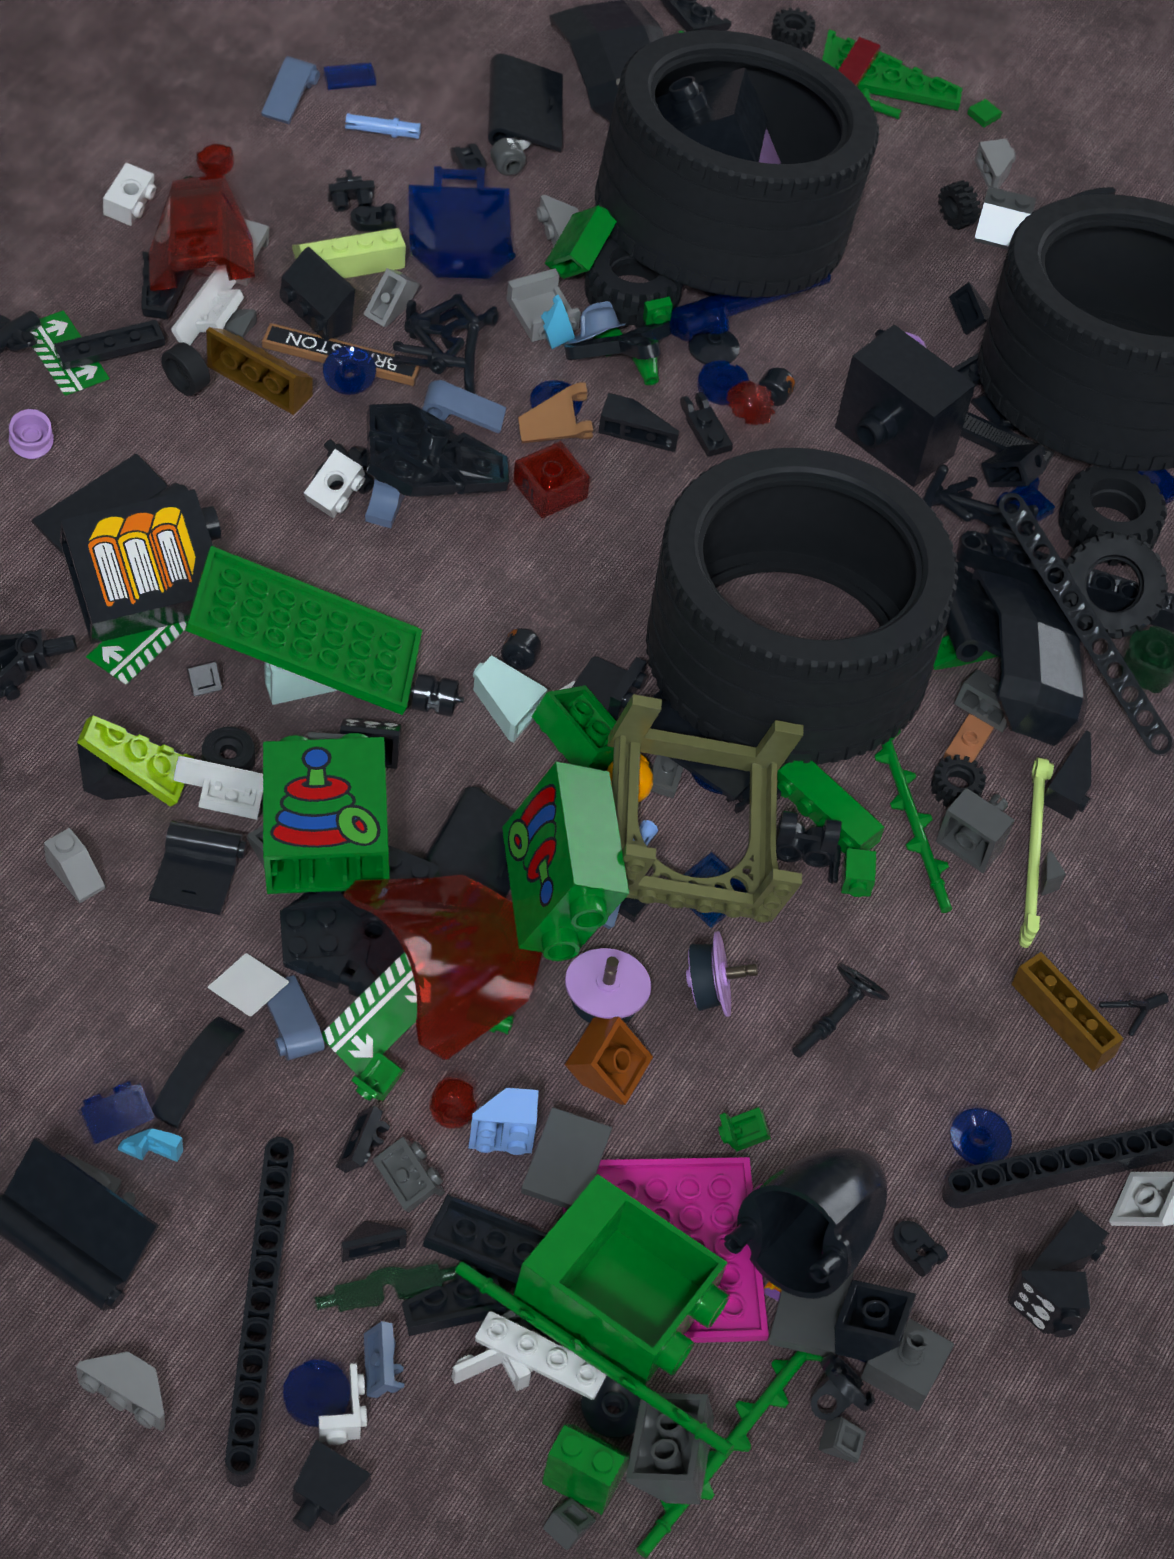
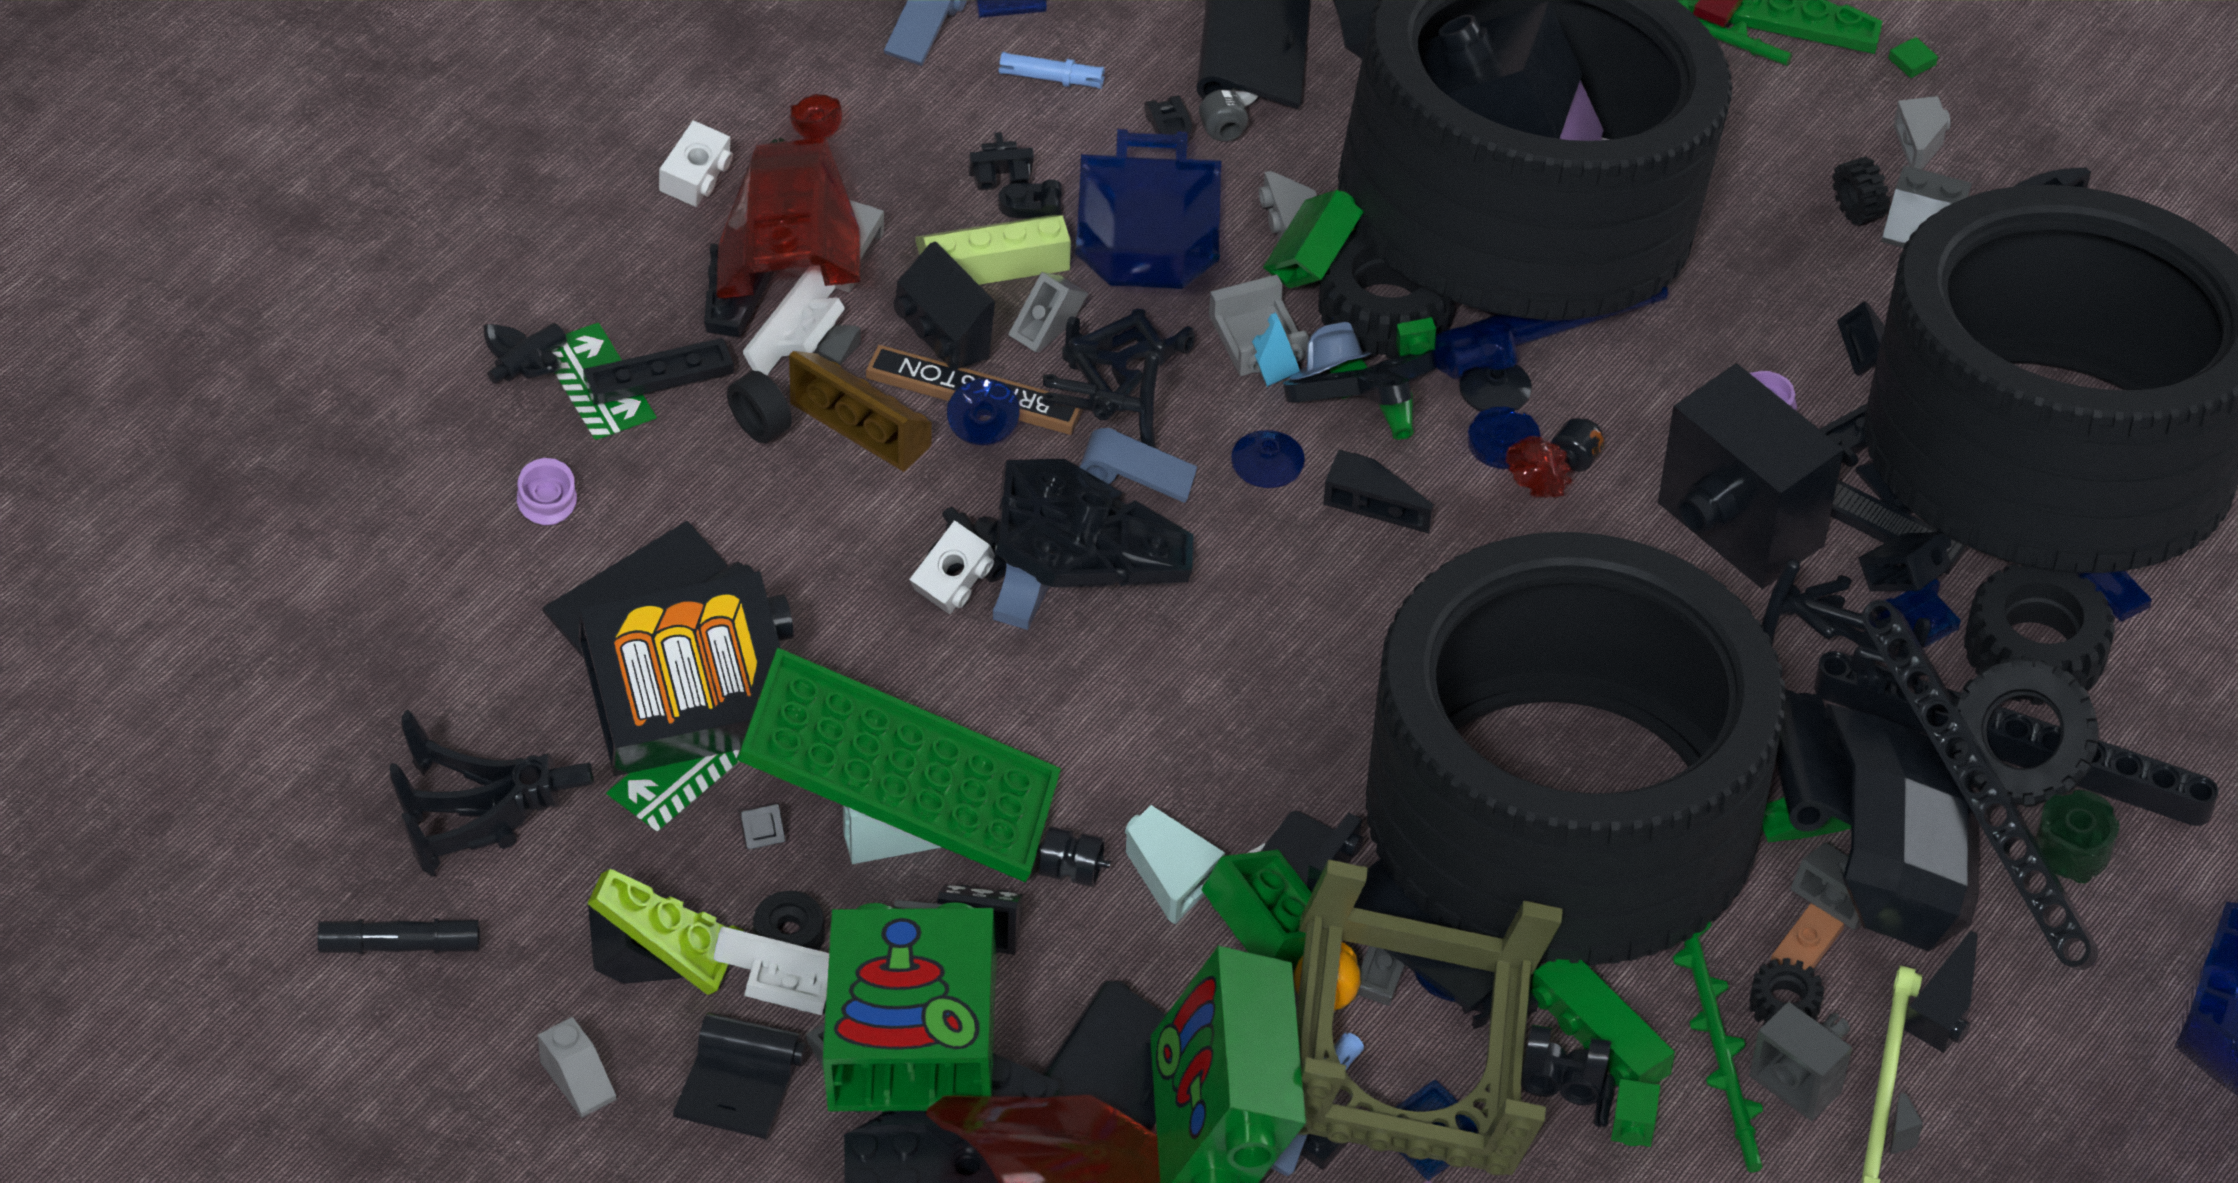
camera: 10 degrees right, 5 degrees down
(521, 648) = (1195, 796): black head -> none
(551, 479) = (1251, 567): clear red brick -> none
(556, 418) = (1264, 483): medium nougat flag -> none
(706, 425) = (1475, 498): black hinge -> none

